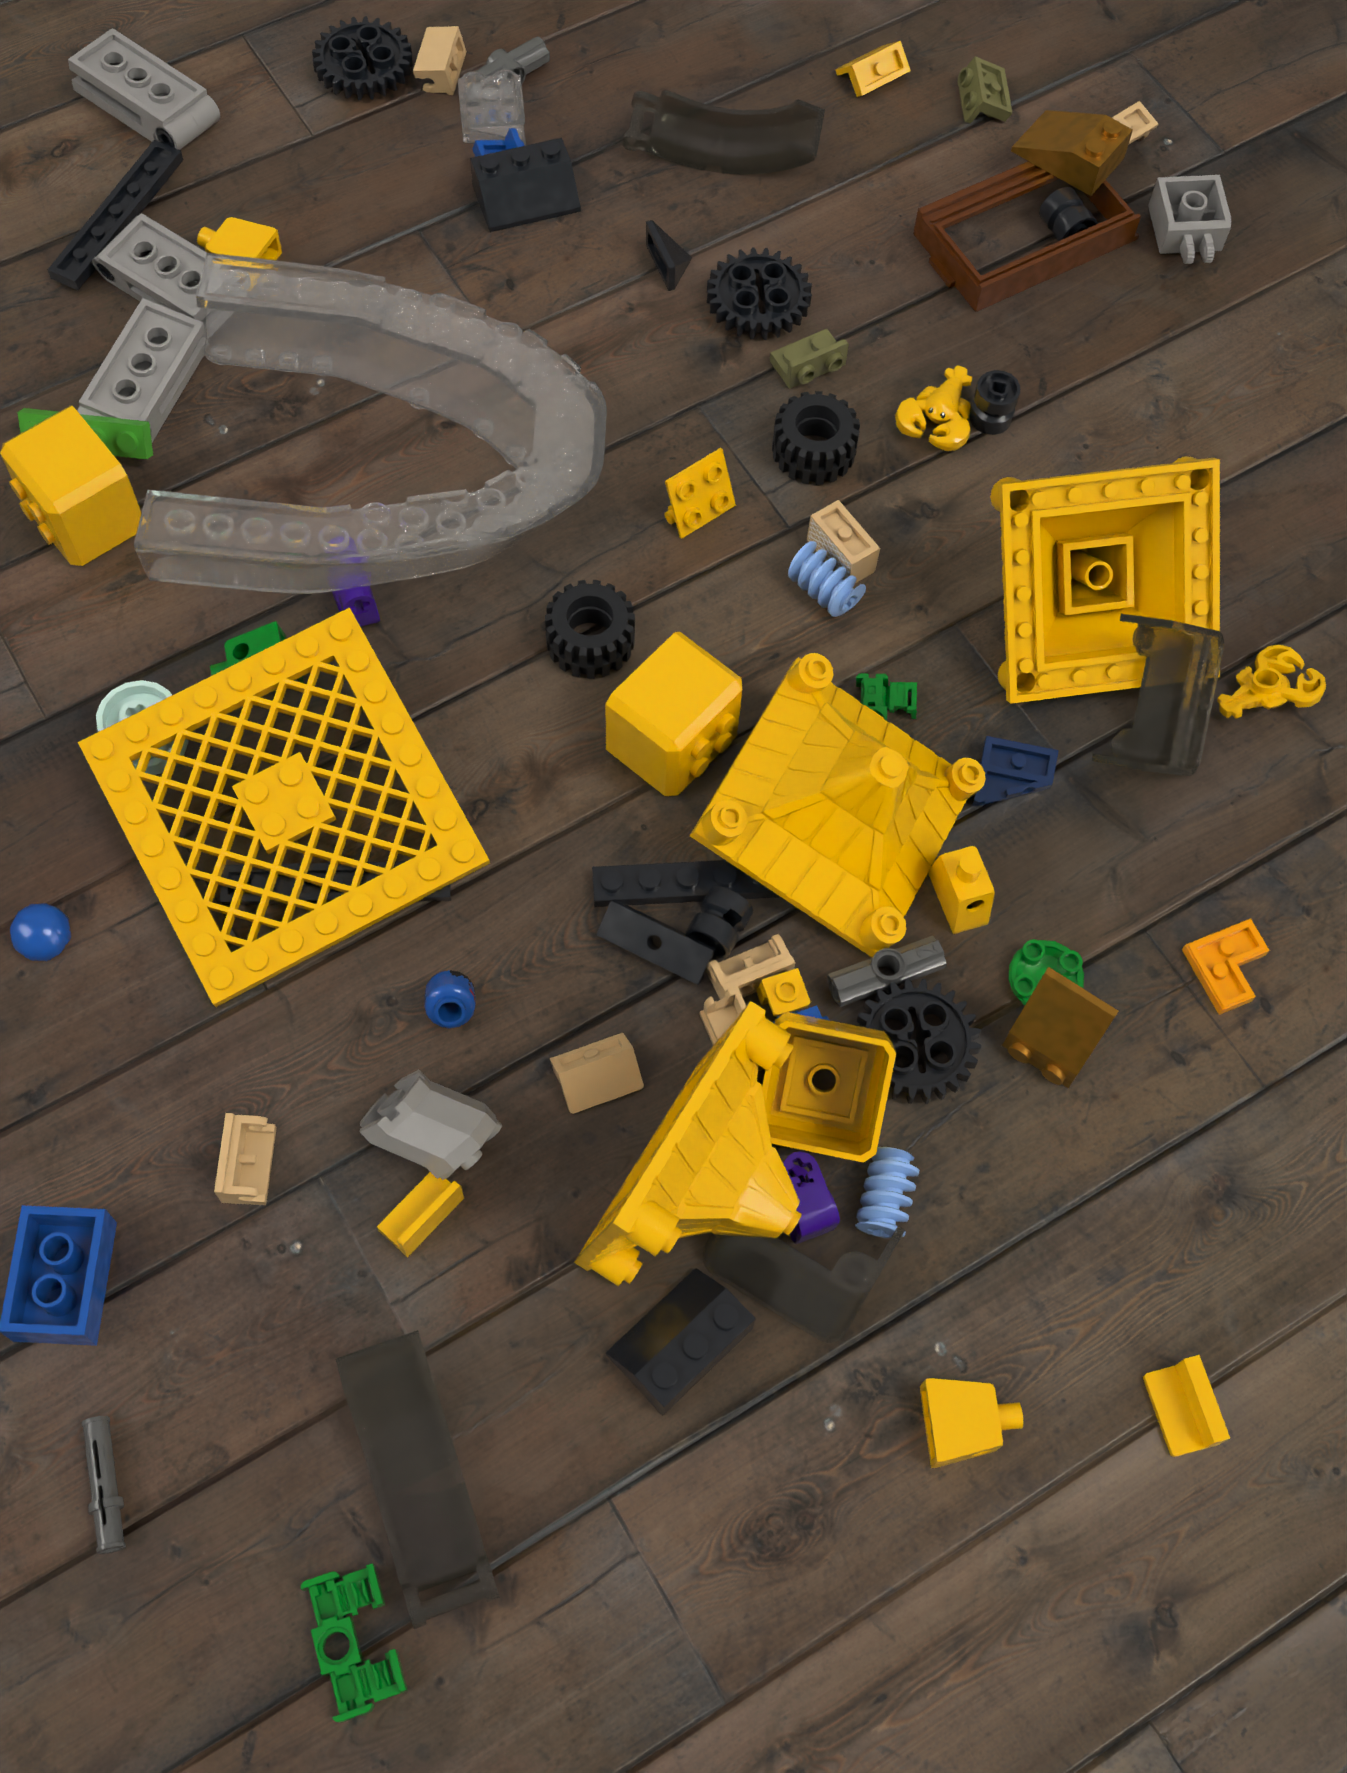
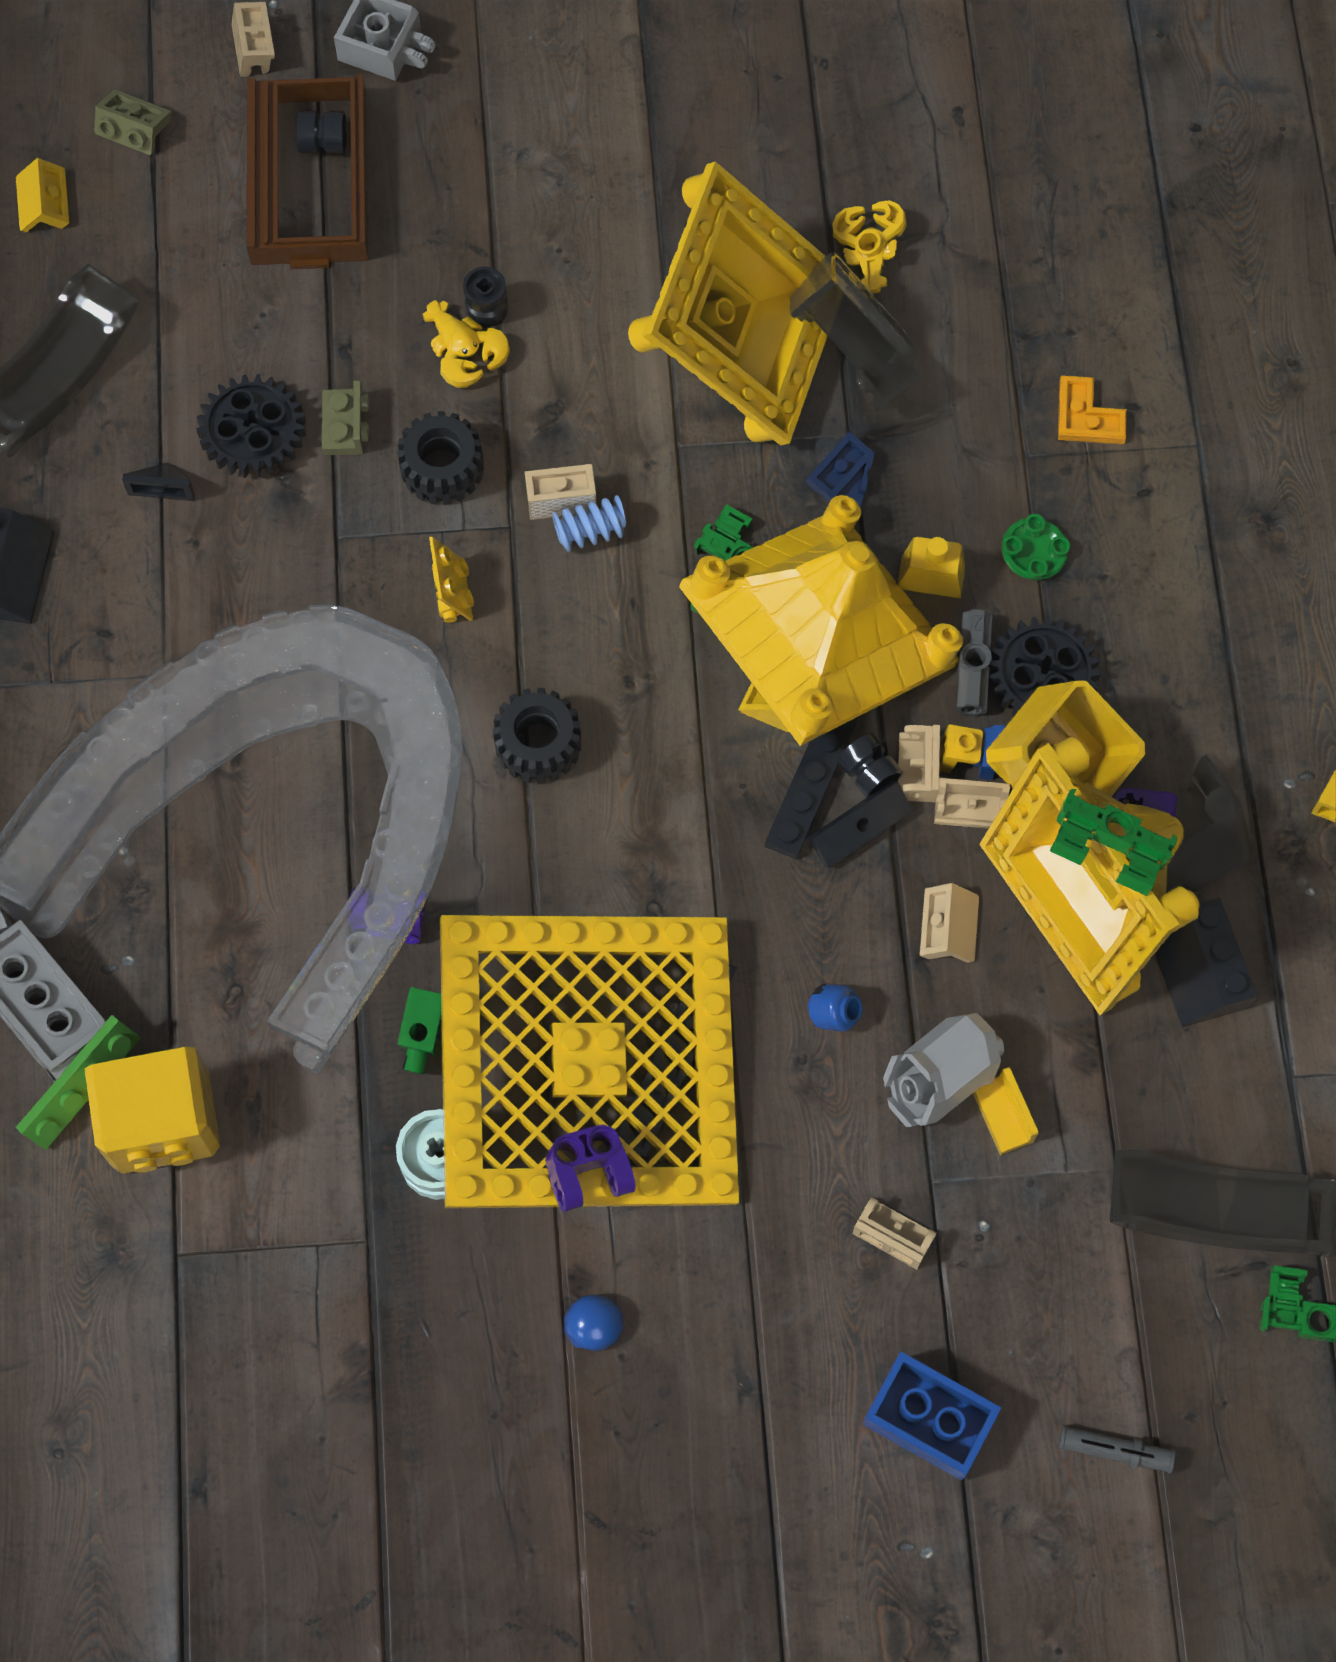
camera: 60 degrees left, 5 degrees up
(186, 824) = (587, 1158): none -> dark purple piece
(673, 715) = (675, 704): yellow plate -> none
(698, 1154) = (1145, 845): none -> green piece
(885, 1192) = (1164, 758): light blue piece -> none
(1059, 1028) = (1096, 561): pearl gold slope -> none
(1075, 147) = (260, 84): pearl gold slope -> none

